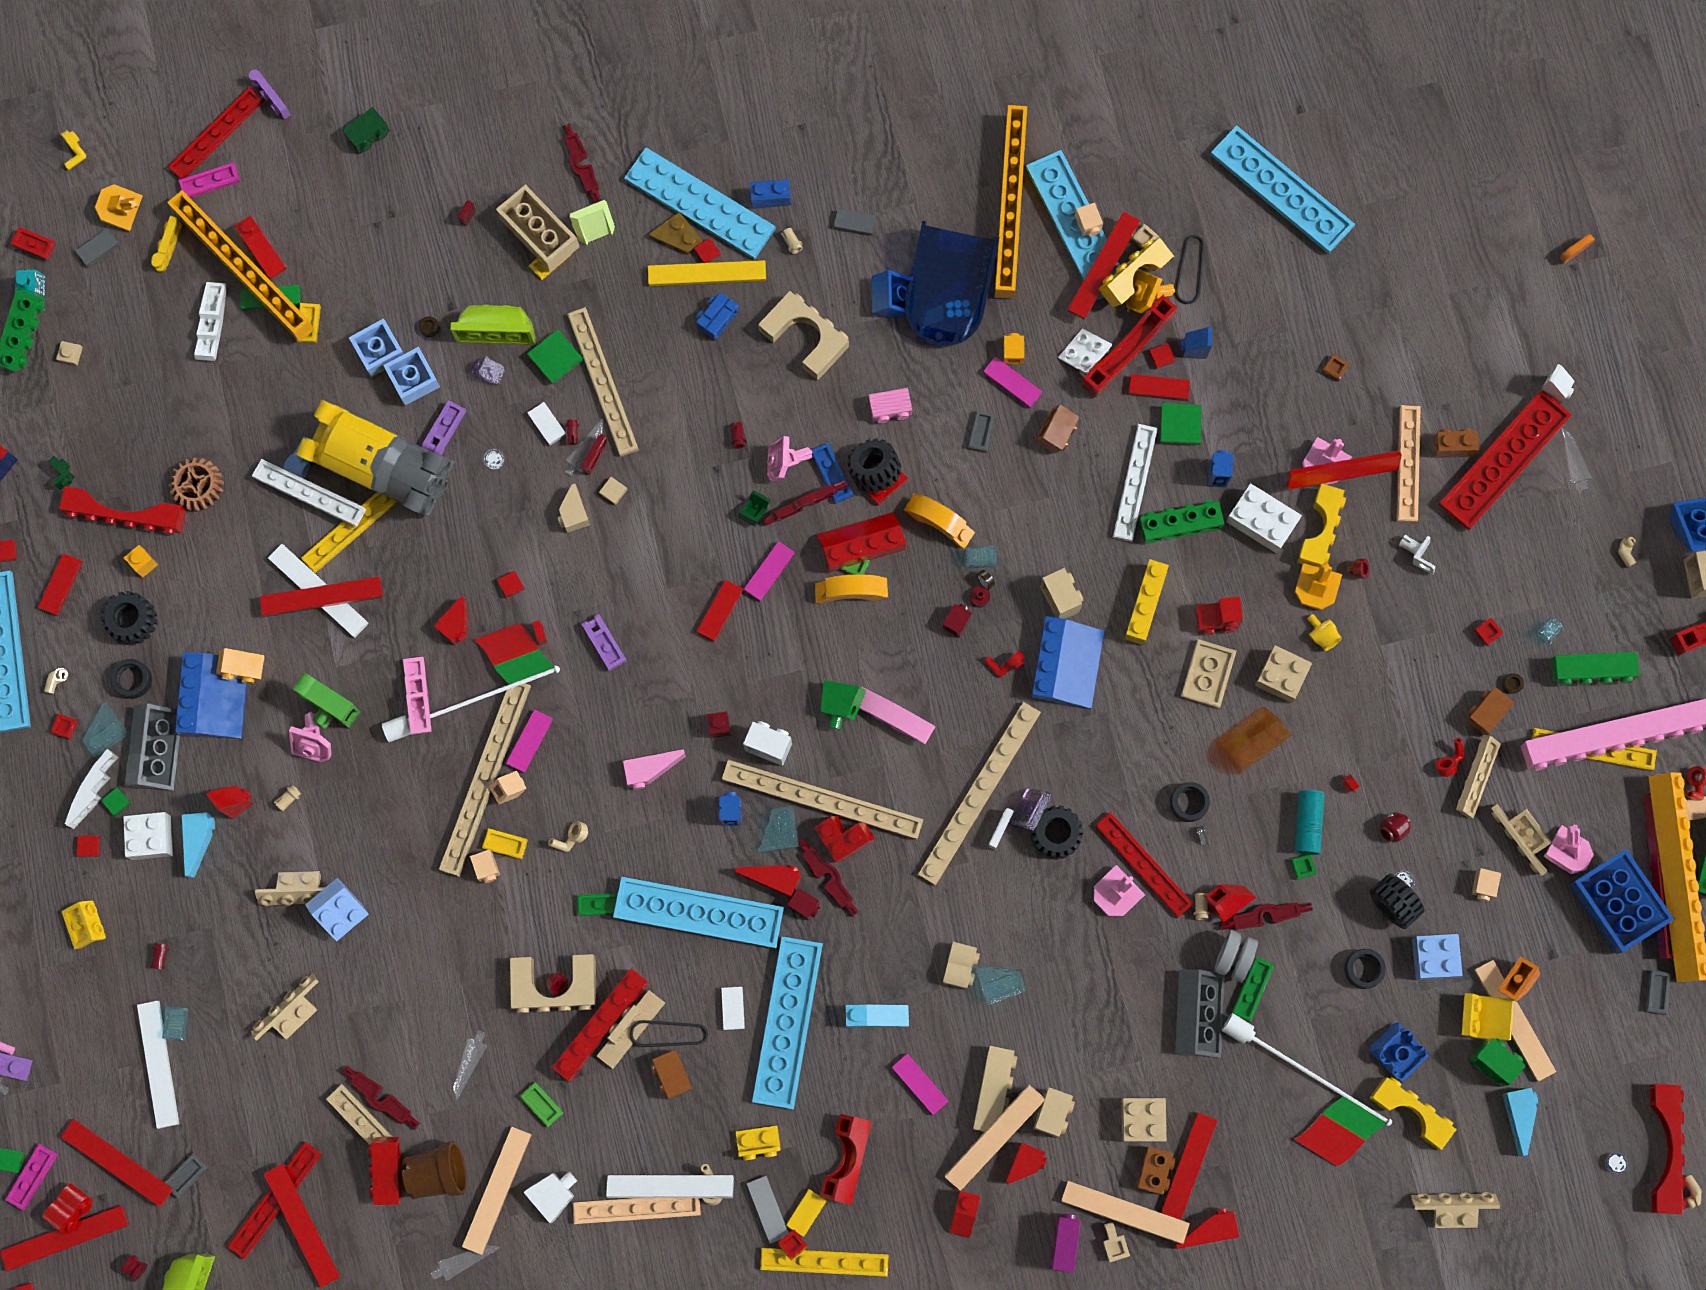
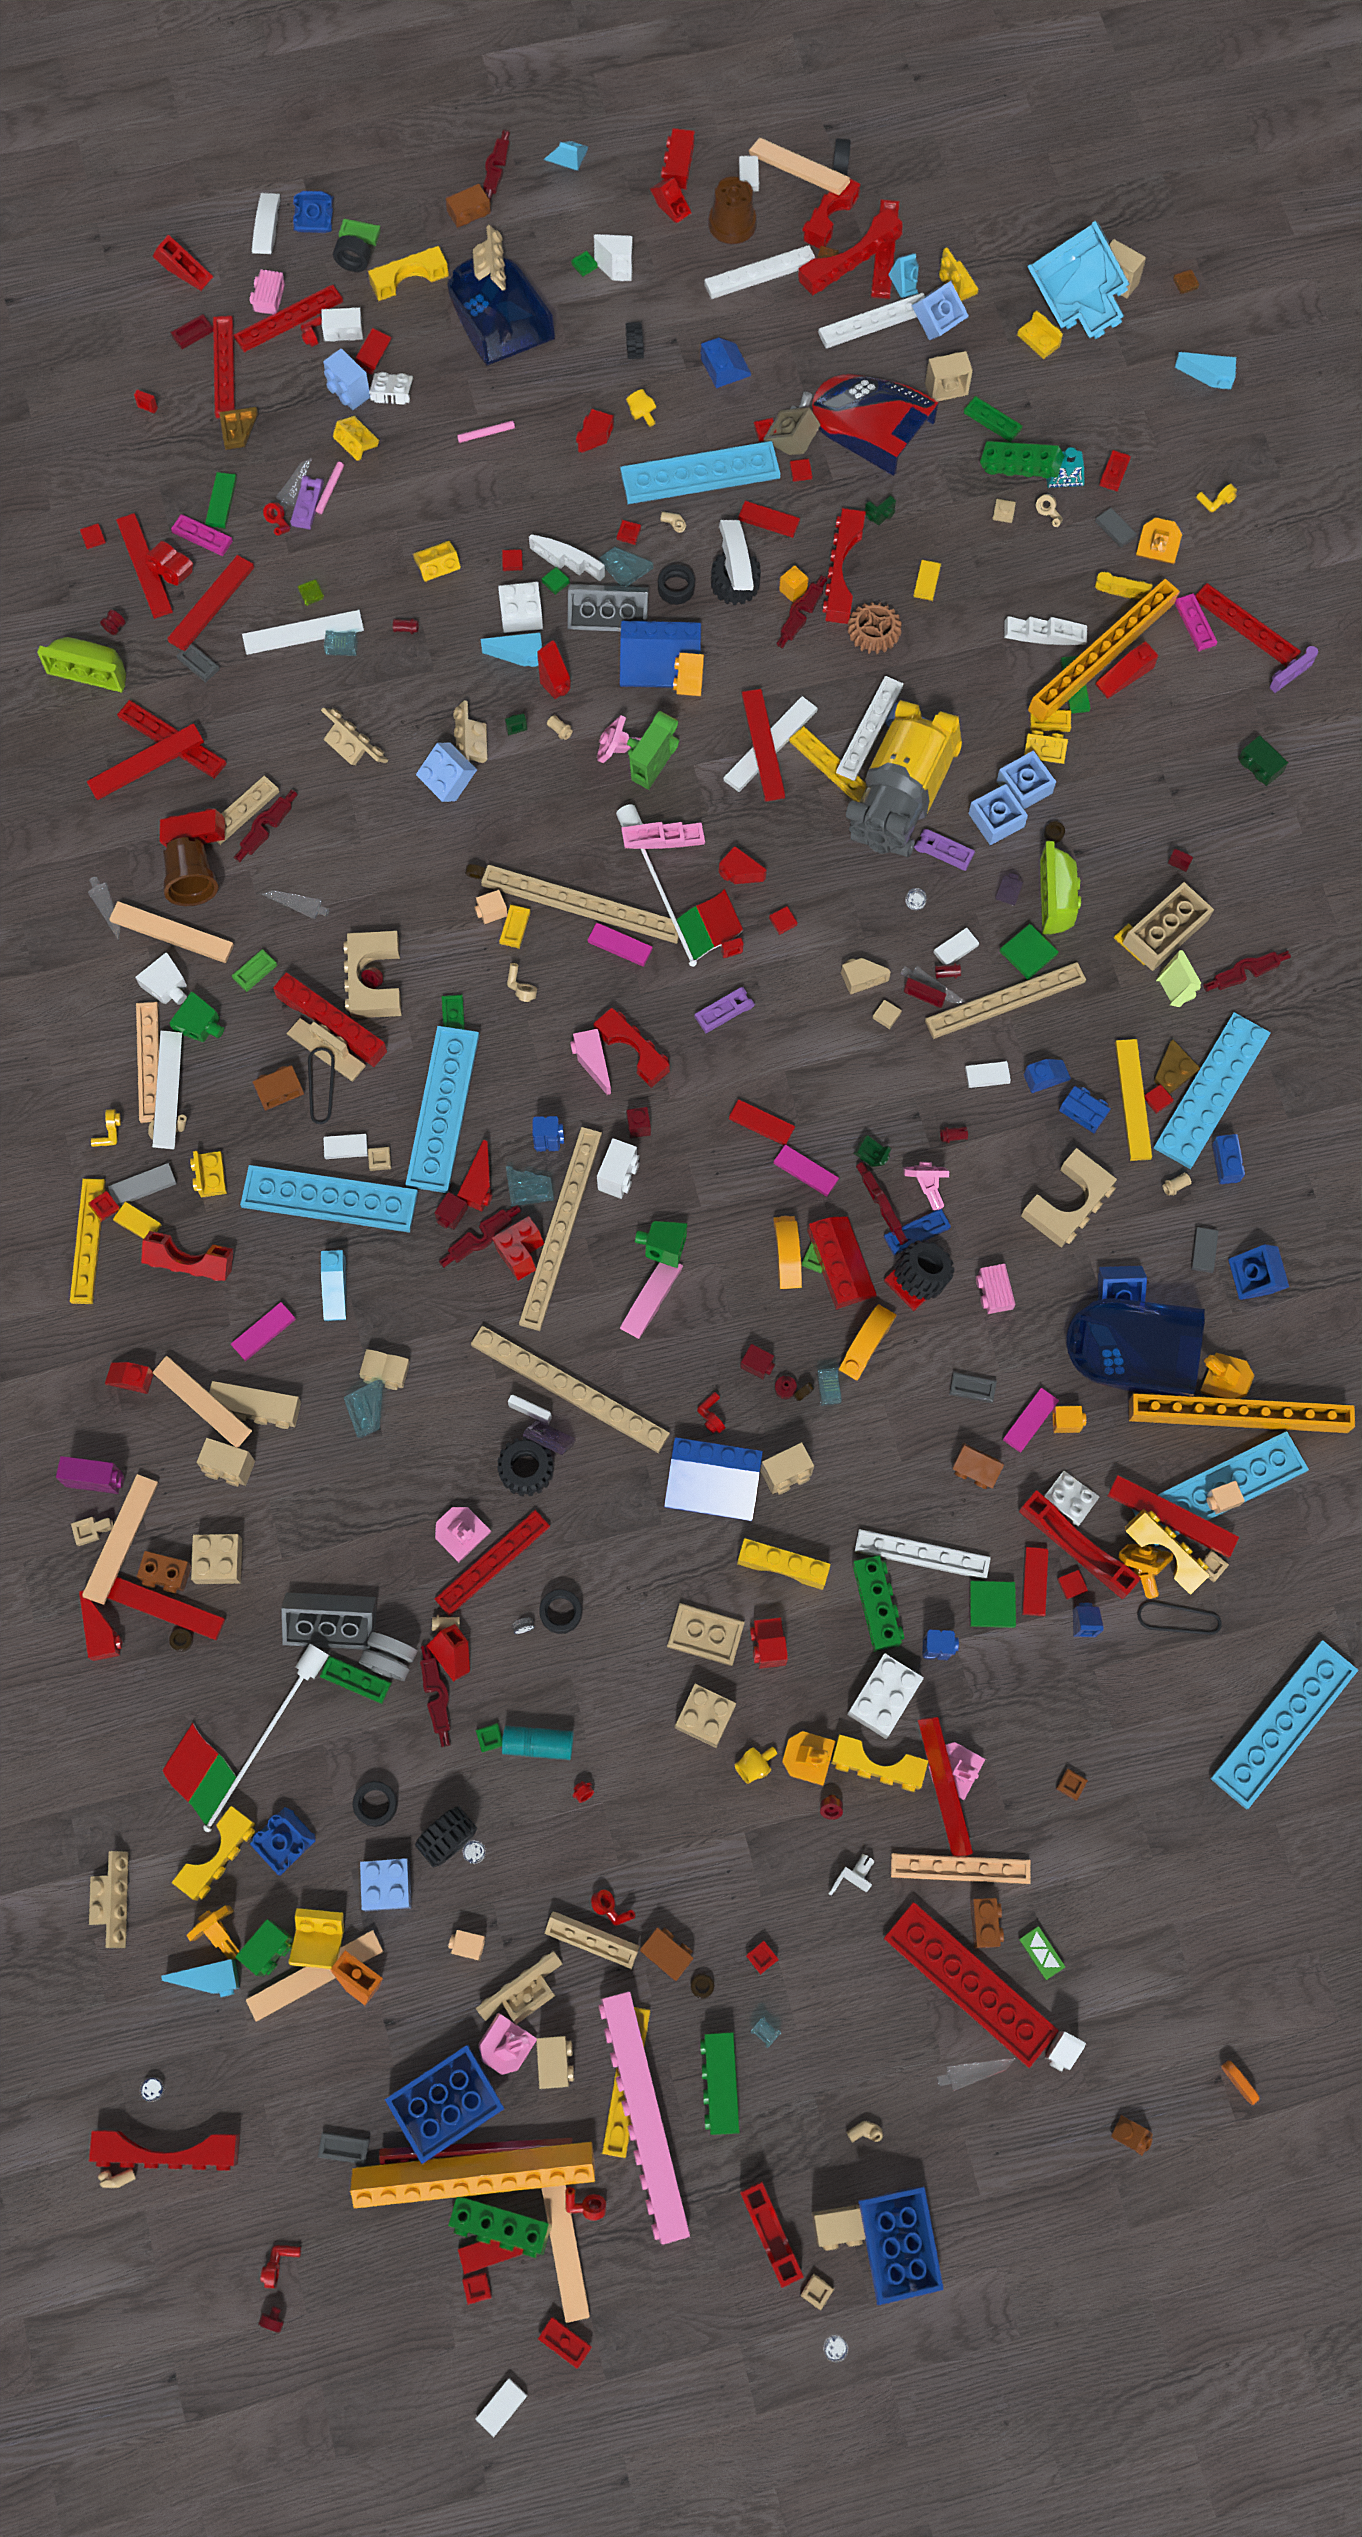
camera: 85 degrees right, 5 degrees down
(18, 1098) = (269, 515): none -> red plate
(73, 308) = (1057, 519): none -> tan plate
(110, 1057) = (310, 592): none -> clear neon green tile
(113, 611) = (736, 554): none -> white slope
(143, 431) = (927, 580): none -> yellow tile
(178, 561) = (796, 619): none -> dark red piece
(281, 841) = (515, 724): none -> dark green plate
(339, 328) = (1047, 748): none -> yellow bracket
(445, 882) = (475, 871): none -> dark brown tile
(508, 787) = (570, 923): light nougat brick -> none
(595, 1159) = (196, 1019): none -> green torso
(658, 712) = (615, 1029): none -> red arch
(678, 402) = (987, 1074): none -> white tile
(681, 348) = (1045, 1074): none -> blue slope
(701, 1241) = (112, 1121): none -> yellow plate
(746, 975) = (379, 1158): none -> tan tile
(878, 177) = (1258, 1272): none -> blue slope
(977, 210) = (1227, 1377): none -> light orange piece
(1026, 1162) = (177, 1437): red slope -> none
(1217, 1153) = (181, 1640): none -> dark brown tile
(1253, 739) = (631, 1682): clear orange slope -> none
(1395, 827) = (532, 1840): dark red head -> none
(1477, 400) = (1041, 1953): none -> bright green tile
(1478, 1112) = (211, 1925): none -> light orange piece
(1584, 807) = (554, 2062): none -> tan brick
(1621, 337) = (1132, 2135): none -> dark orange bracket

